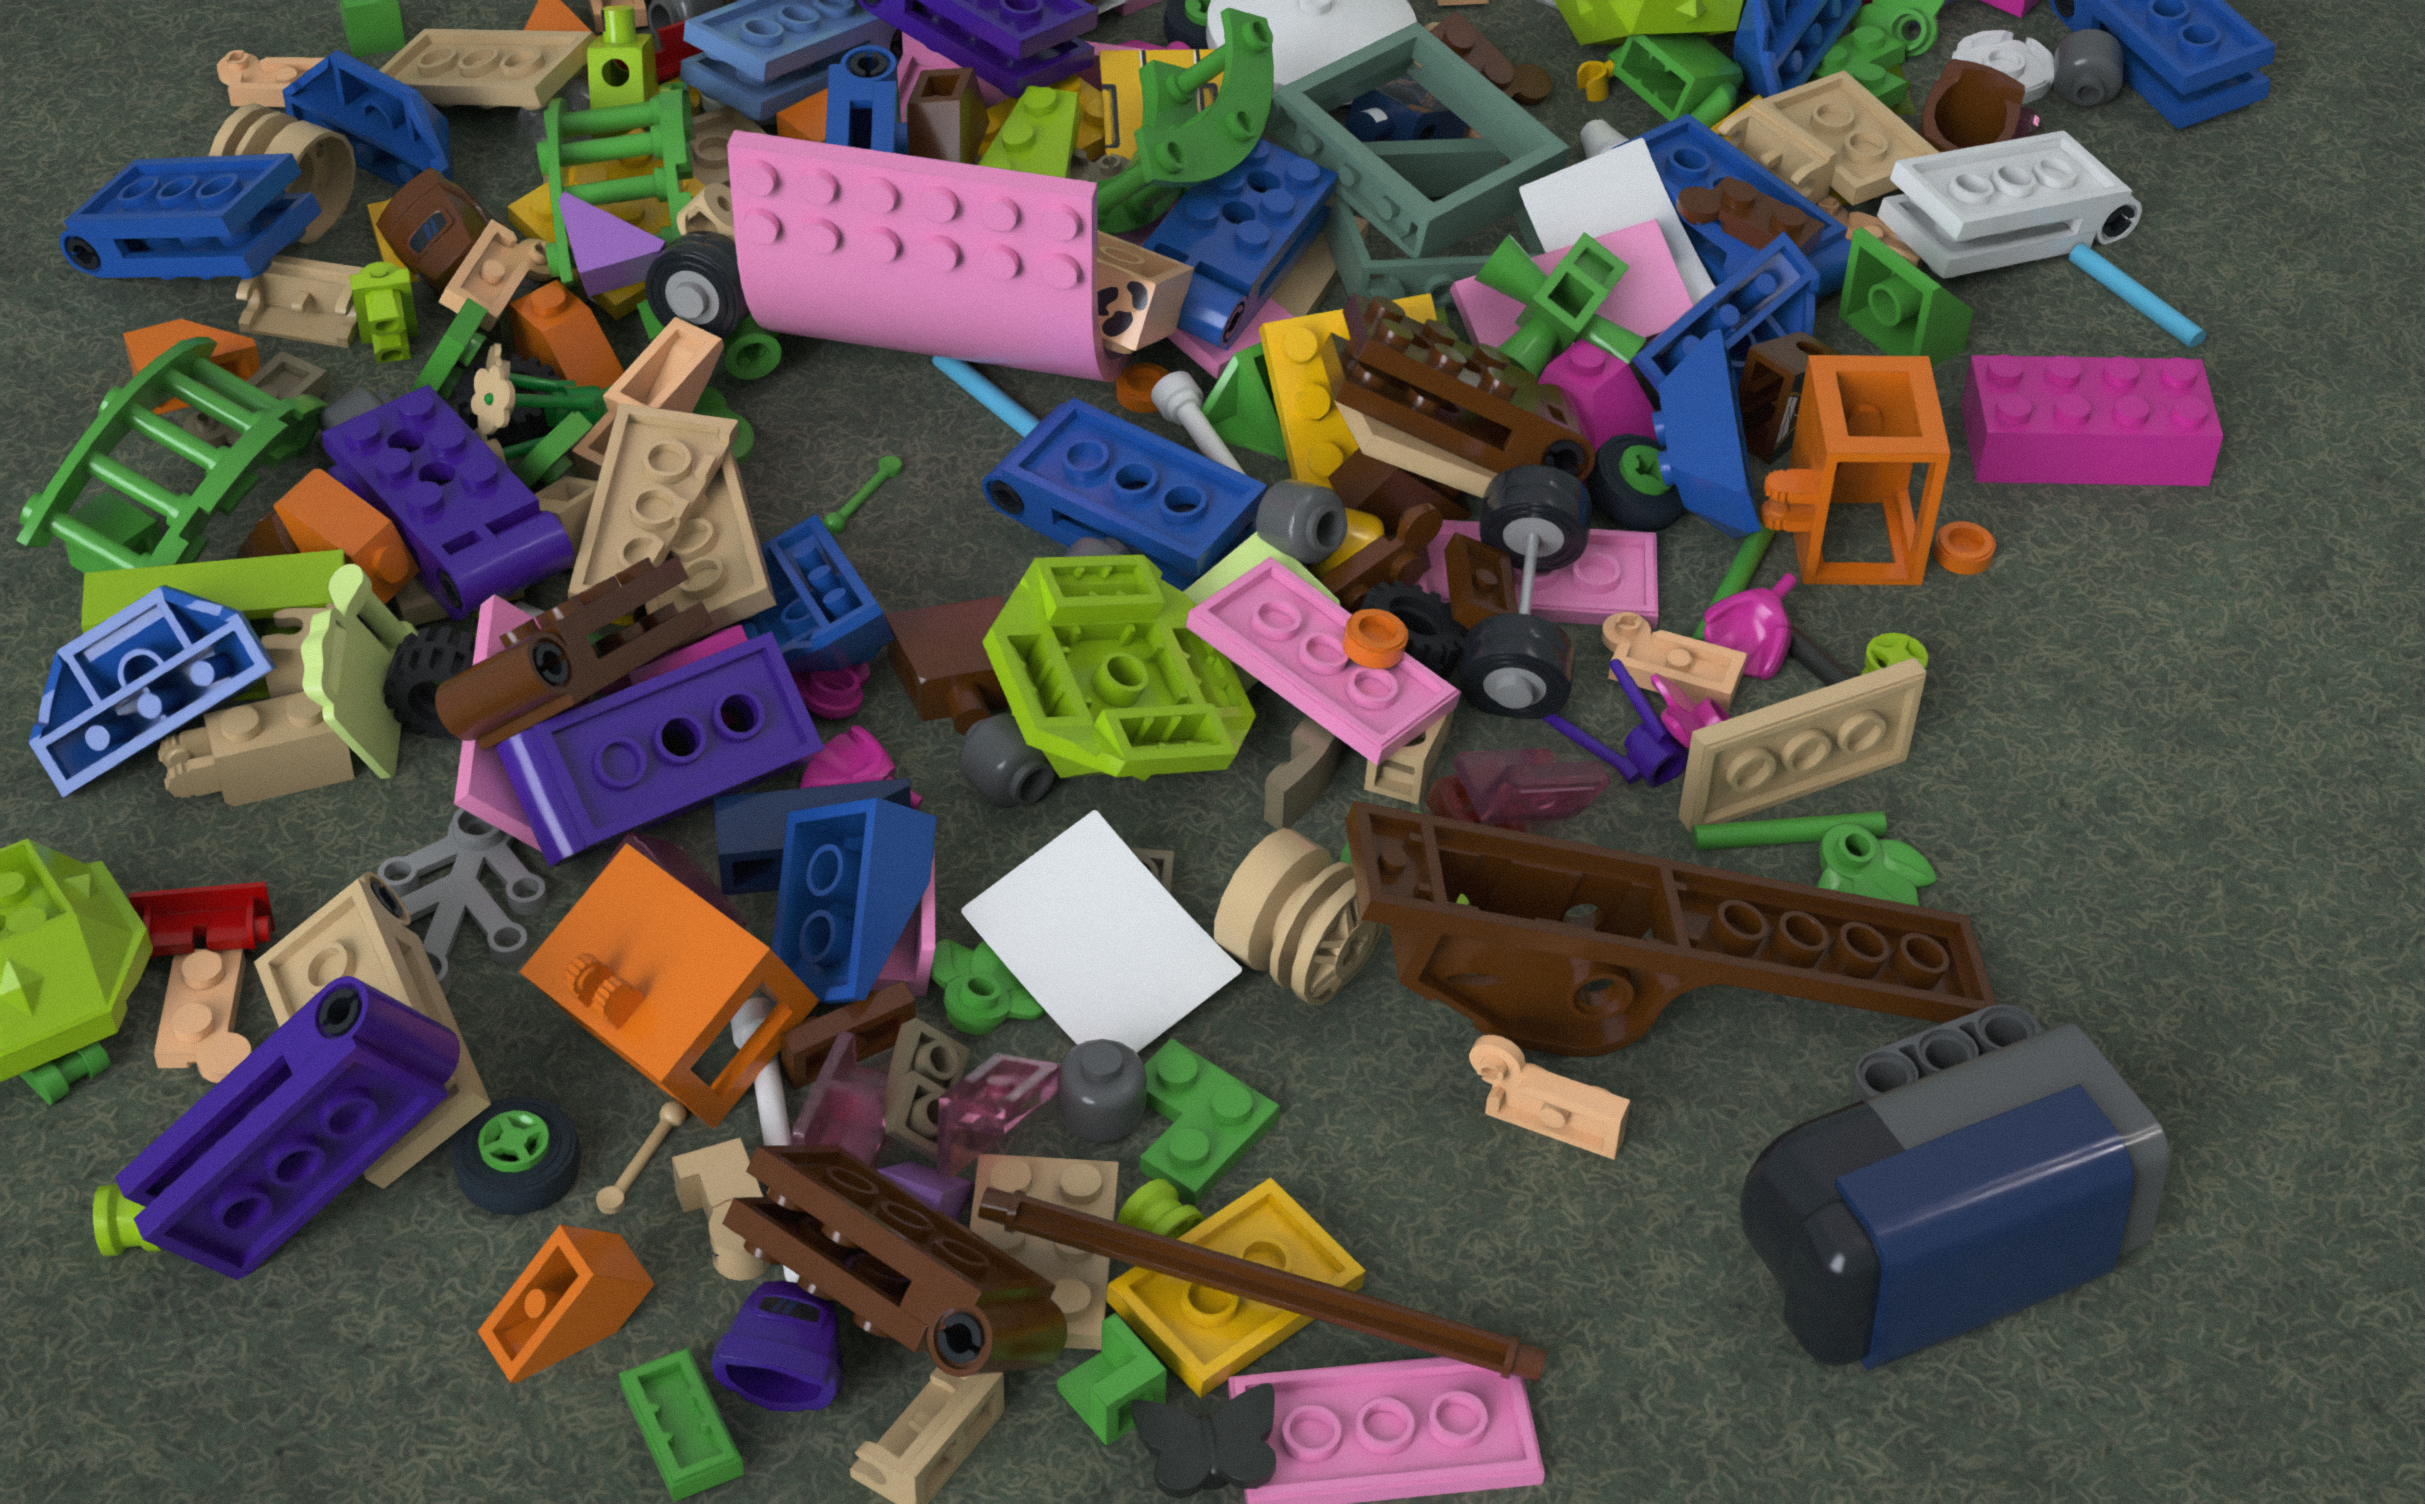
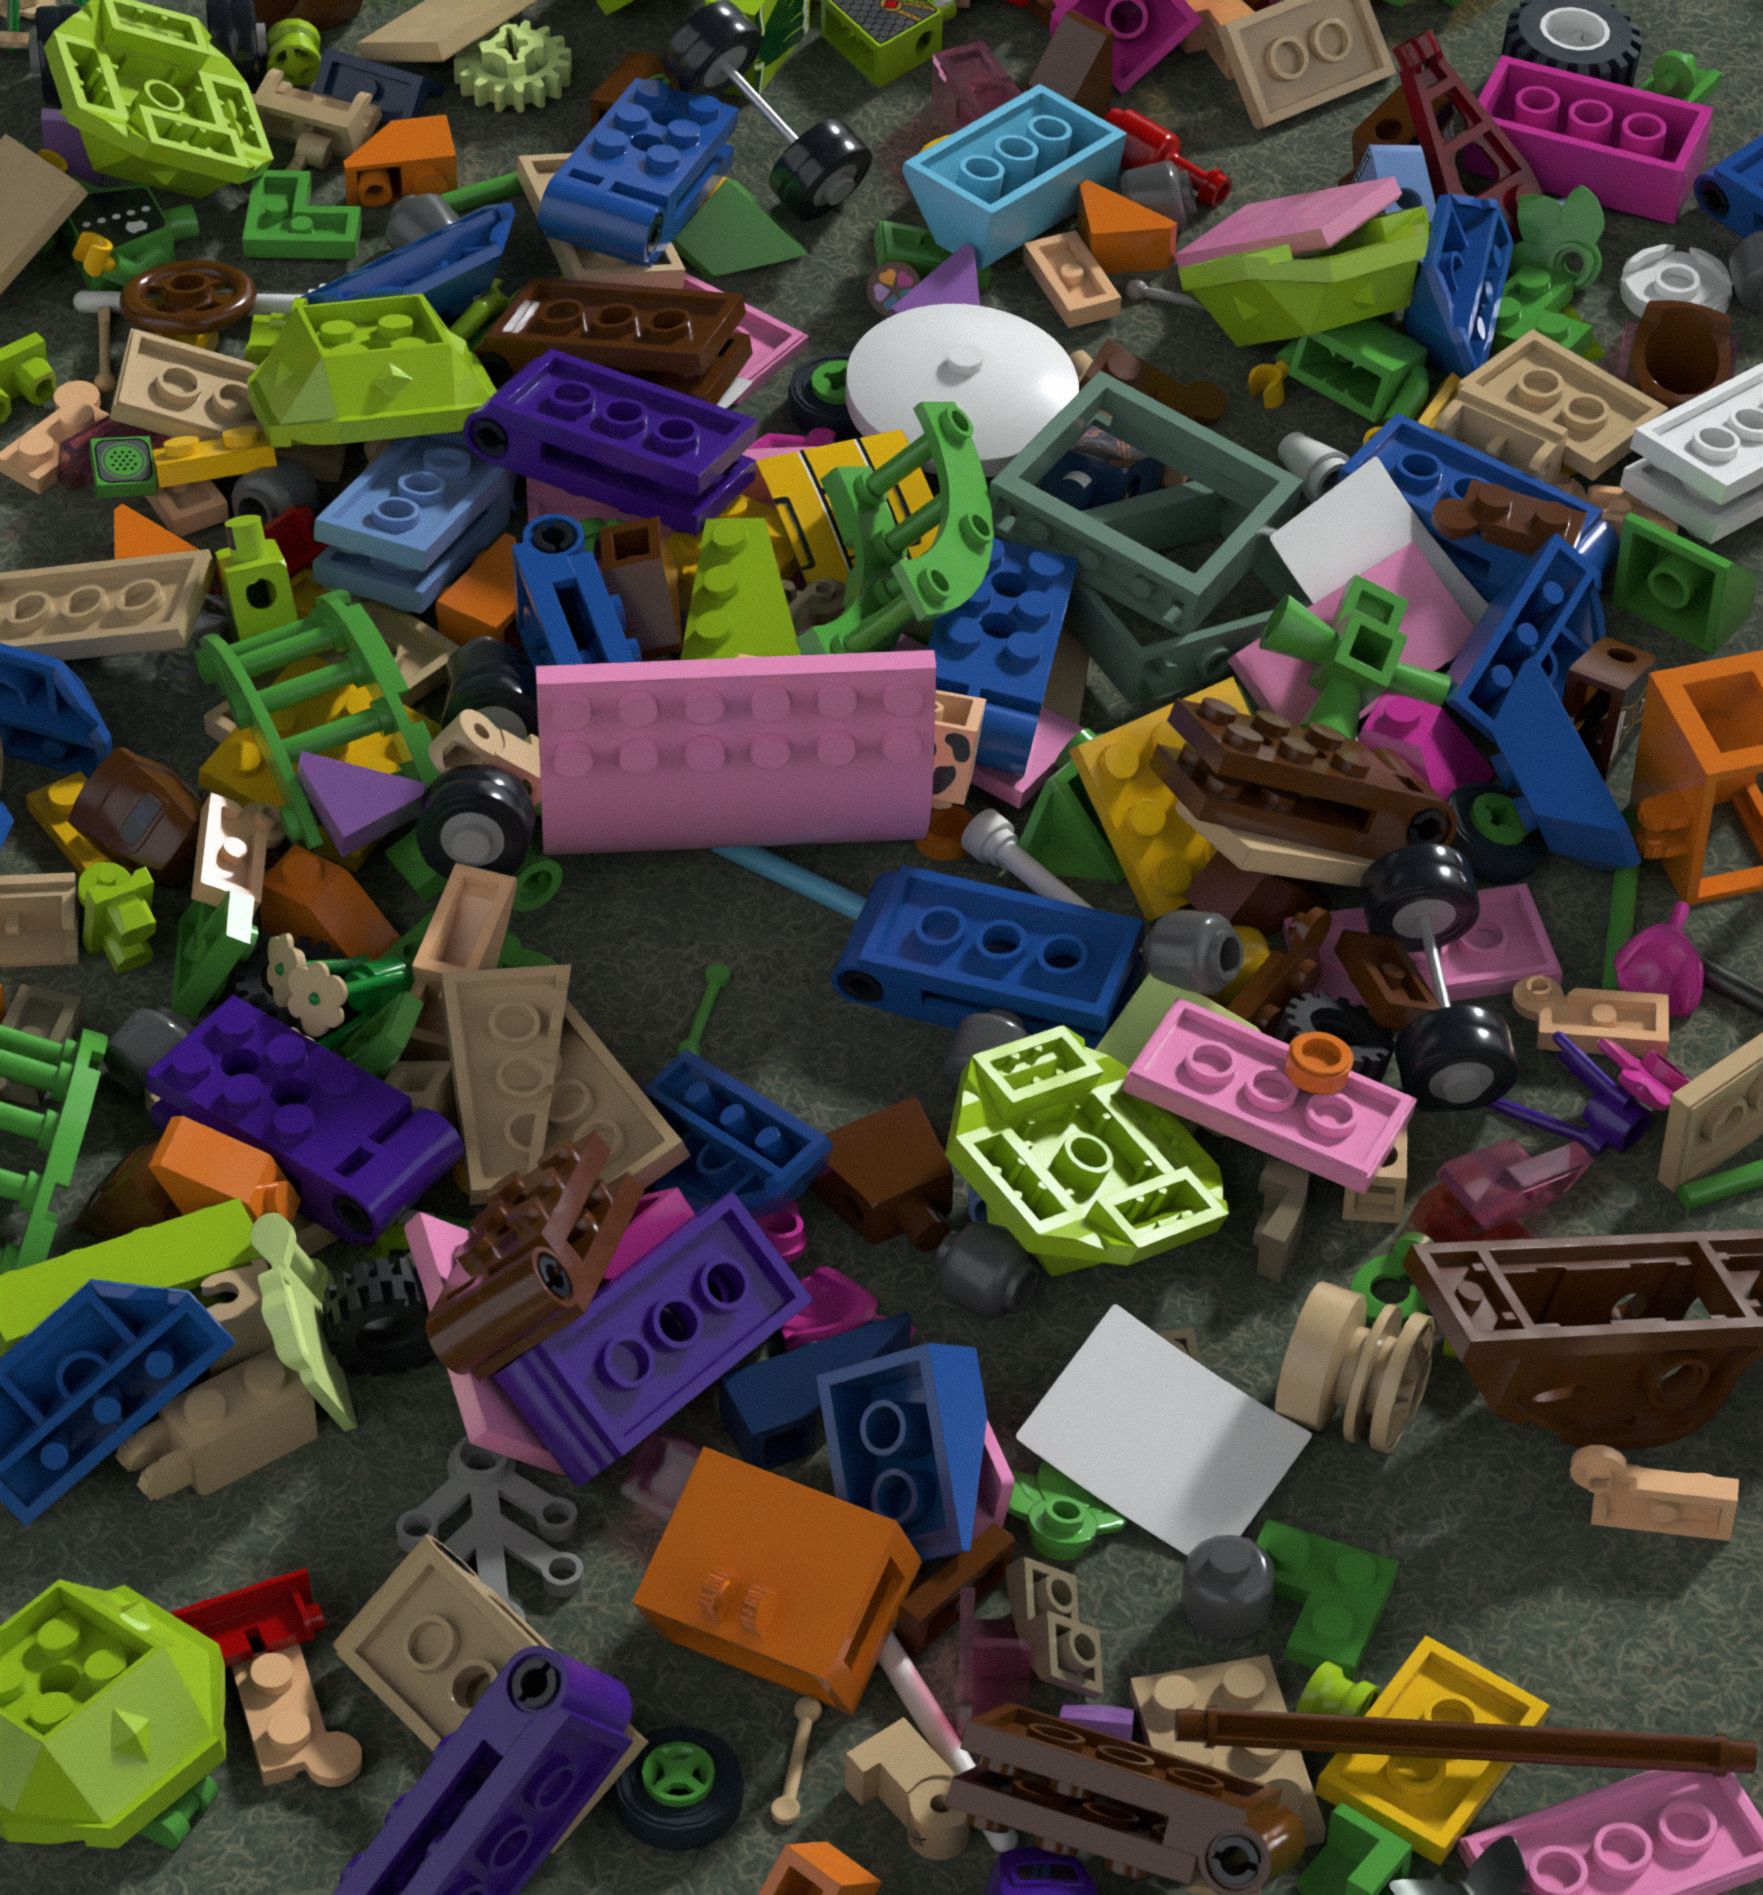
camera: 15 degrees left, 0 degrees up
(989, 1106) = (1144, 1621): clear pink panel -> none

